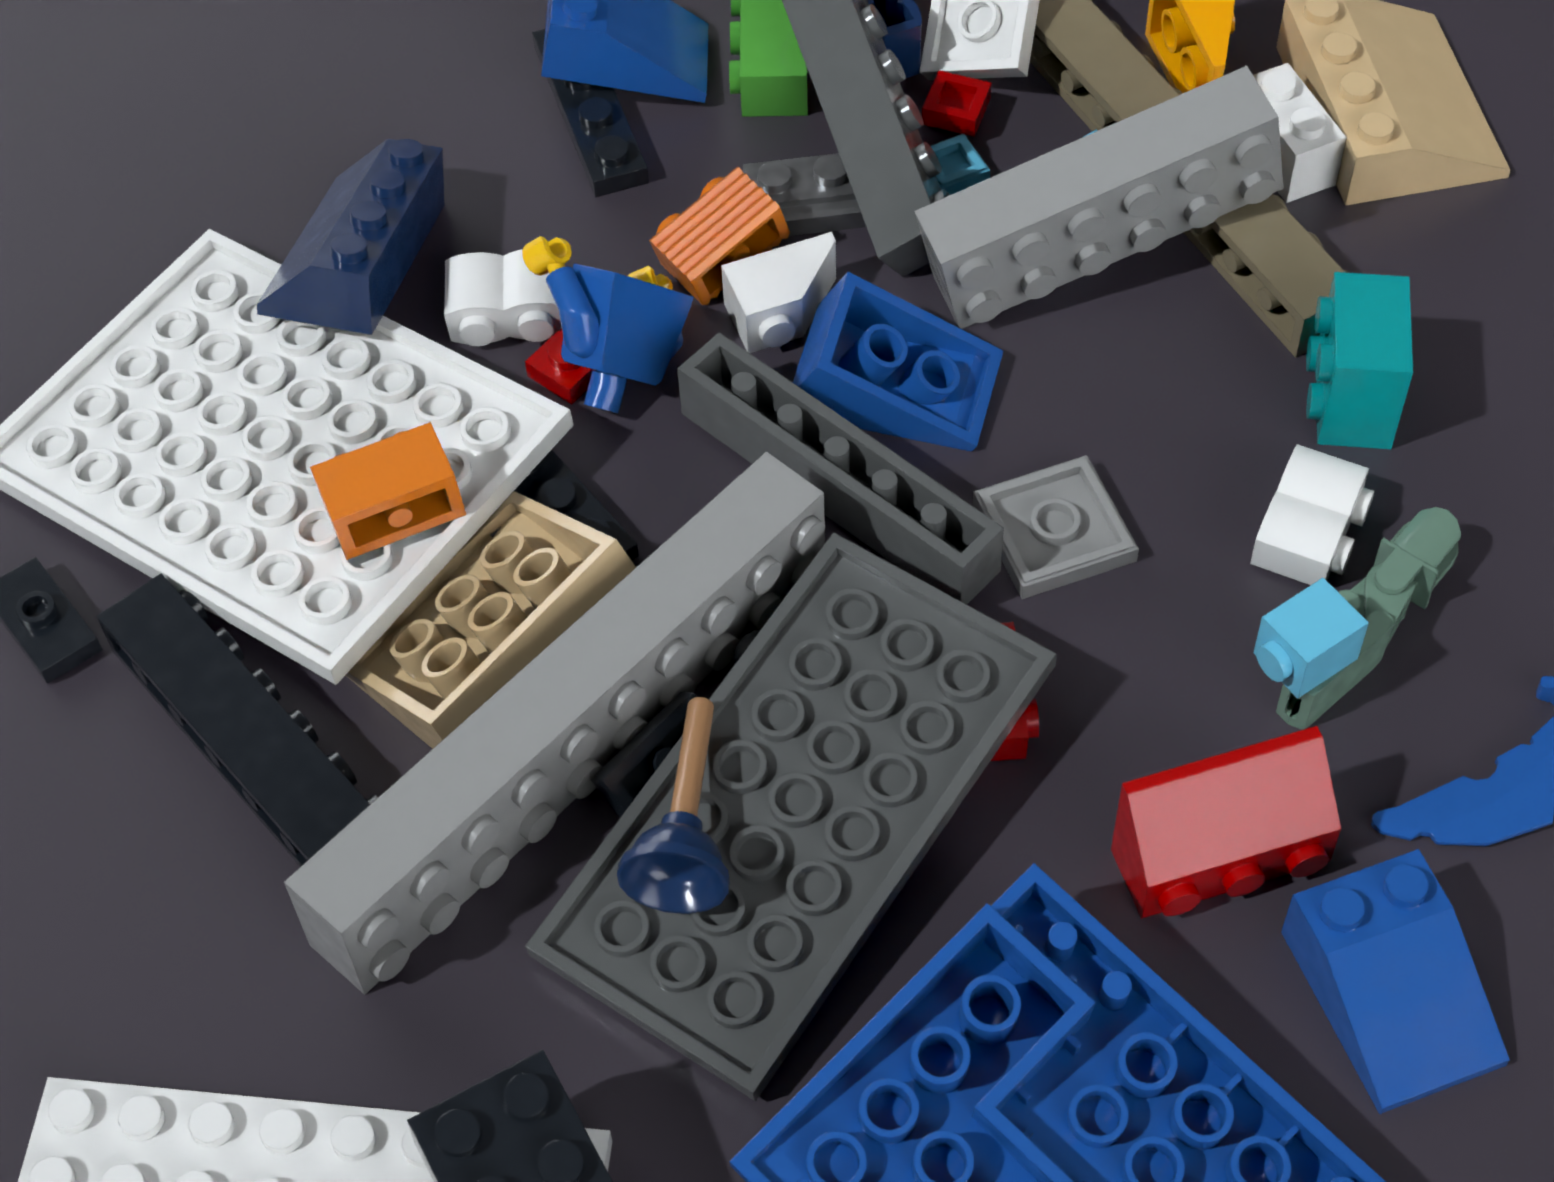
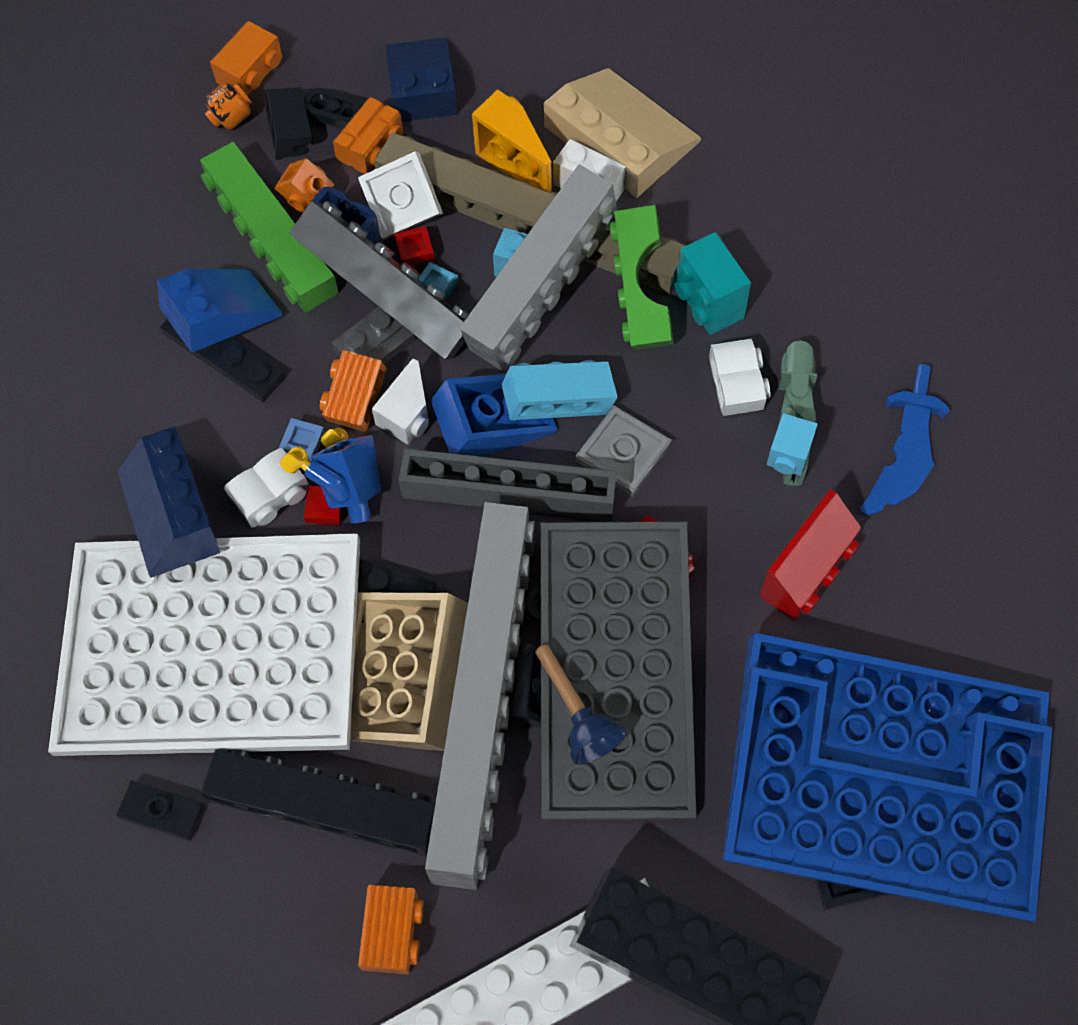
camera: 35 degrees left, 10 degrees up
(195, 960) = (389, 929): none -> orange brick
(388, 490) = (305, 634): orange brick -> none
(606, 252) = (302, 435): none -> medium blue plate
(1012, 383) = (559, 390): none -> medium azure brick
(1281, 228) = (637, 236): none -> bright green arch
(1395, 980) = (924, 583): blue slope -> none

